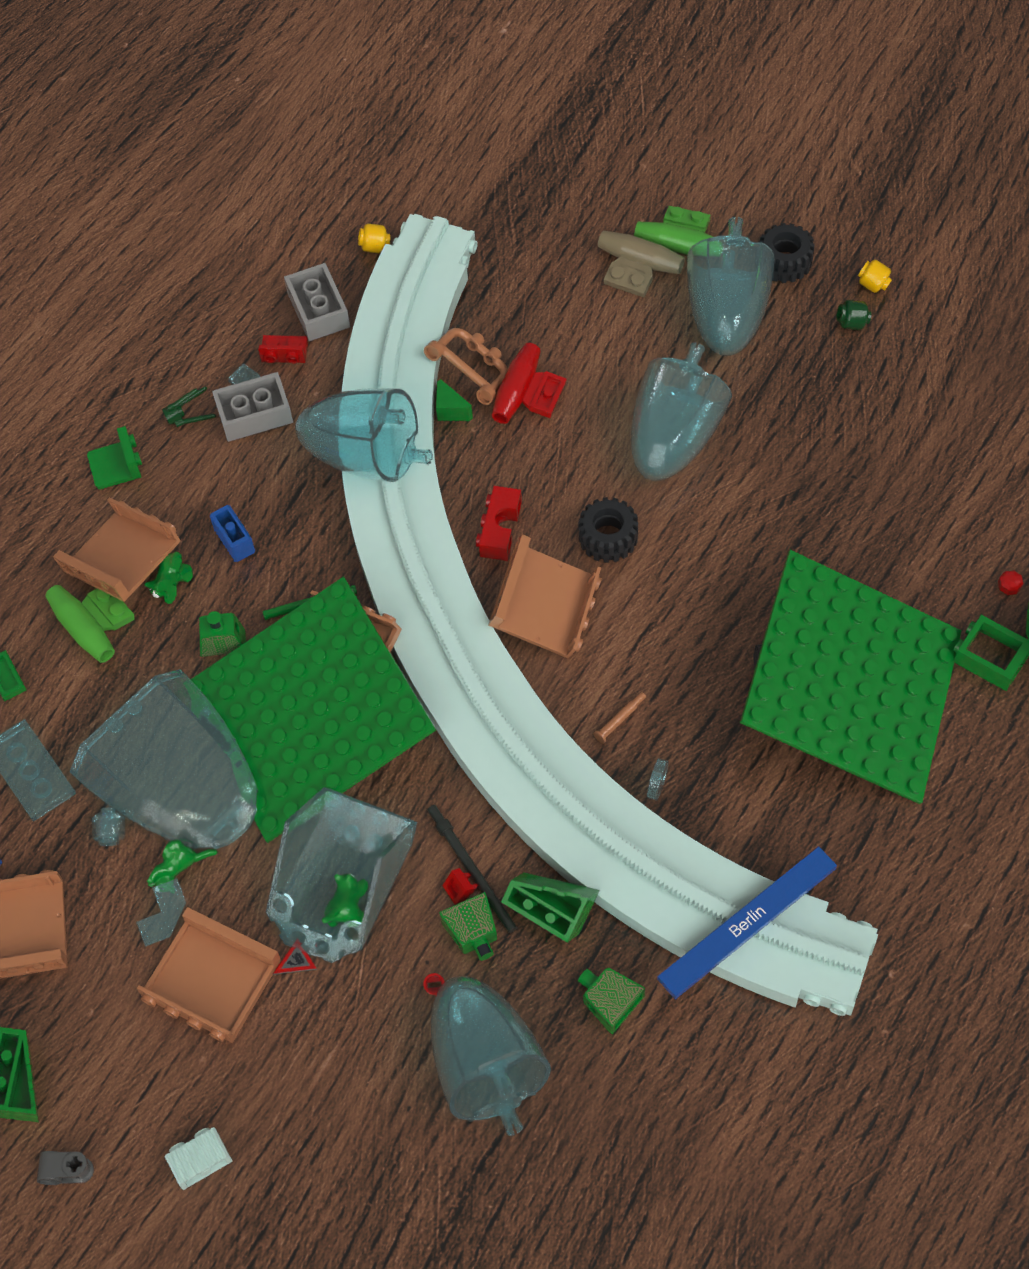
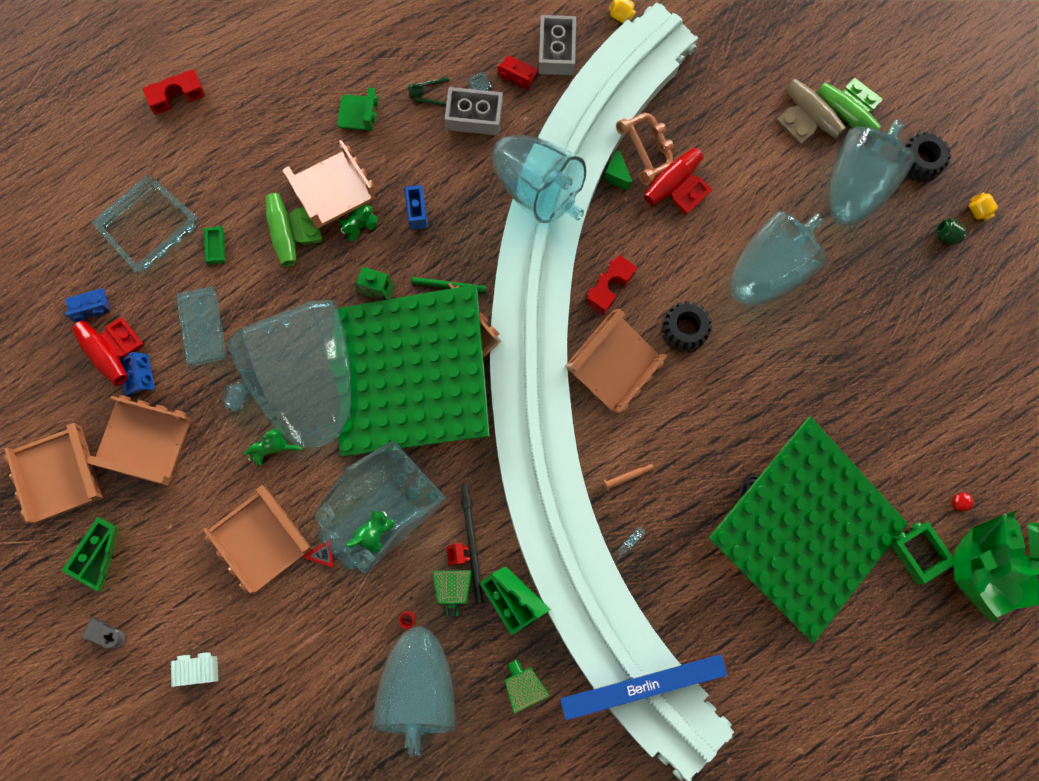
camera: 15 degrees right, 15 degrees up
(161, 925) = (241, 486): clear light blue tile -> none

